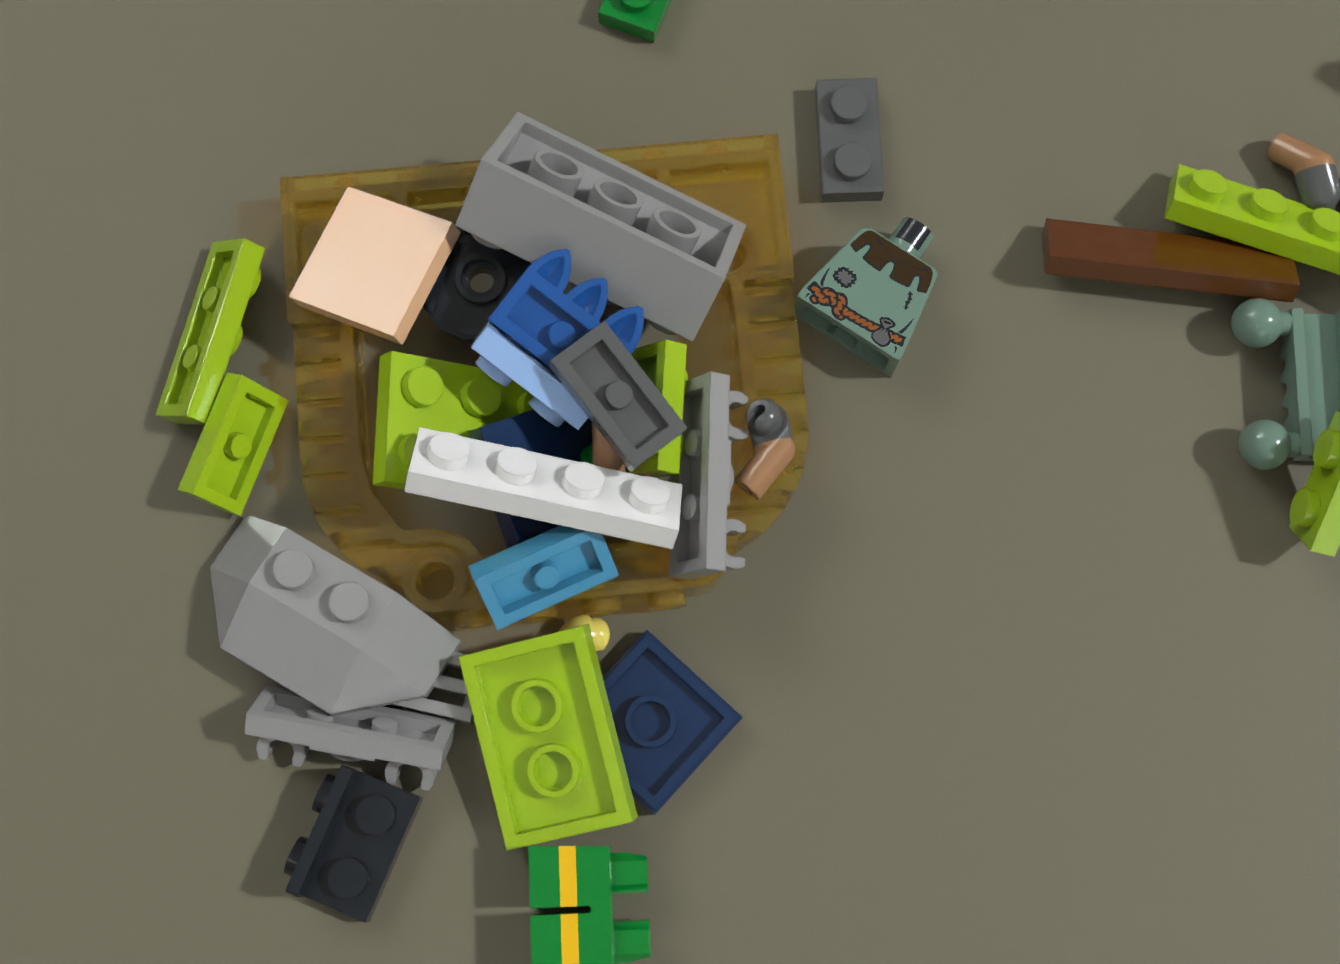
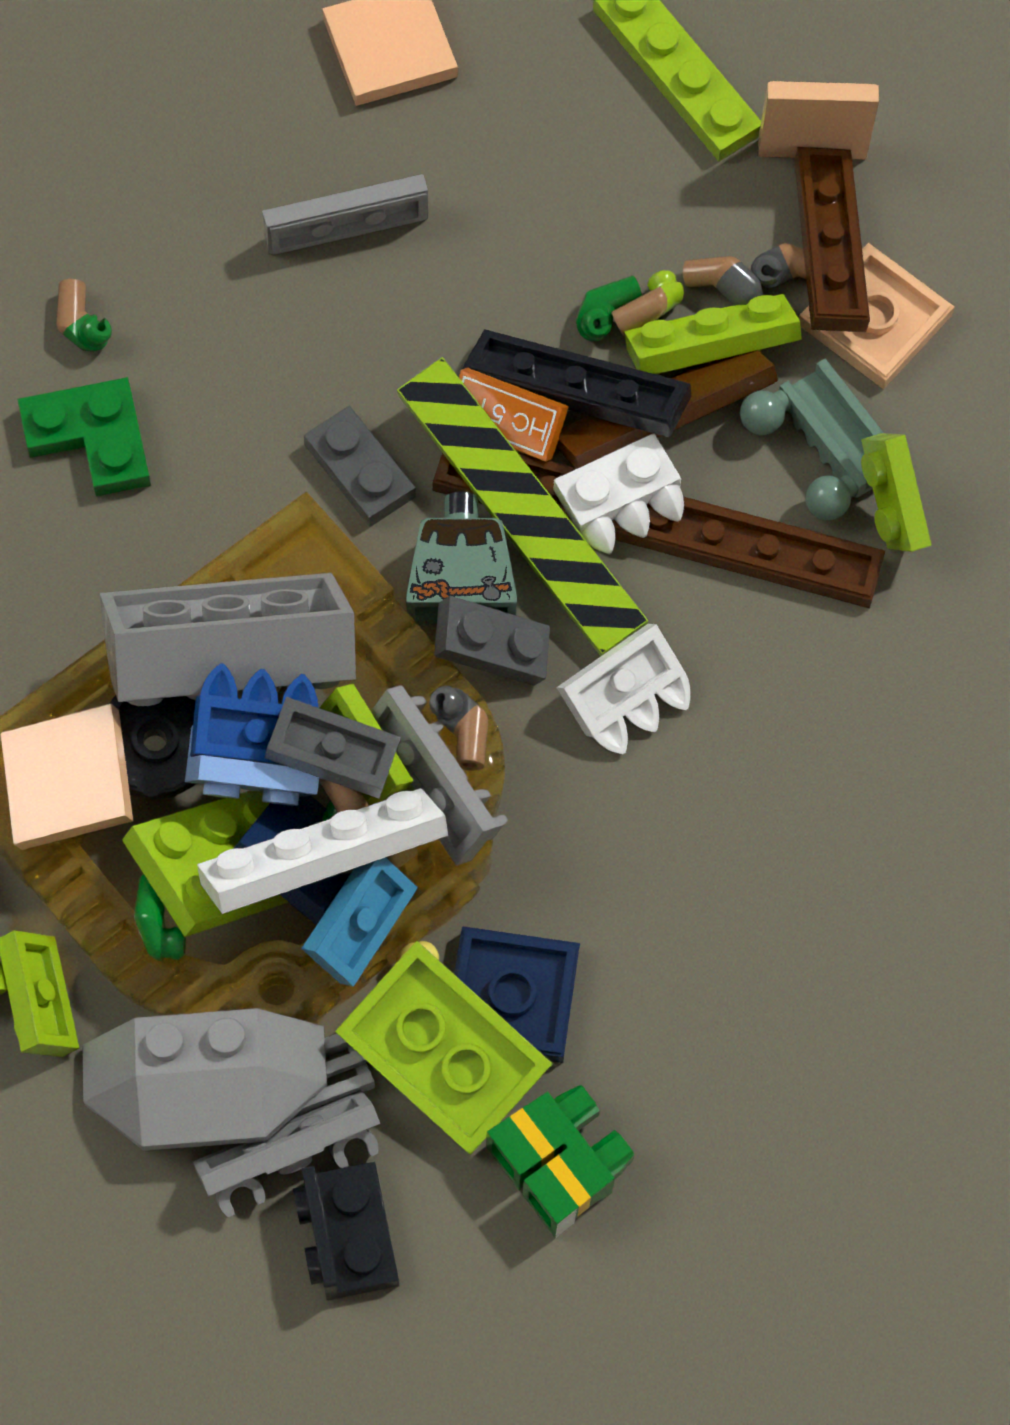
camera: 35 degrees left, 10 degrees down
(355, 457) = (150, 920): none -> green arm
(853, 380) = (492, 640): none -> dark grey plate
(949, 501) = (625, 685): none -> white plate
(968, 272) = (524, 505): none -> tile
(1014, 175) = (524, 418): none -> orange tile
(1070, 312) = (618, 490): none -> white plate
(1093, 368) = (733, 542): none -> reddish brown tile
(1101, 187) = (583, 382): none -> black tile
(1172, 126) = (595, 315): none -> green arm
(1238, 154) = (663, 296): none -> medium nougat arm

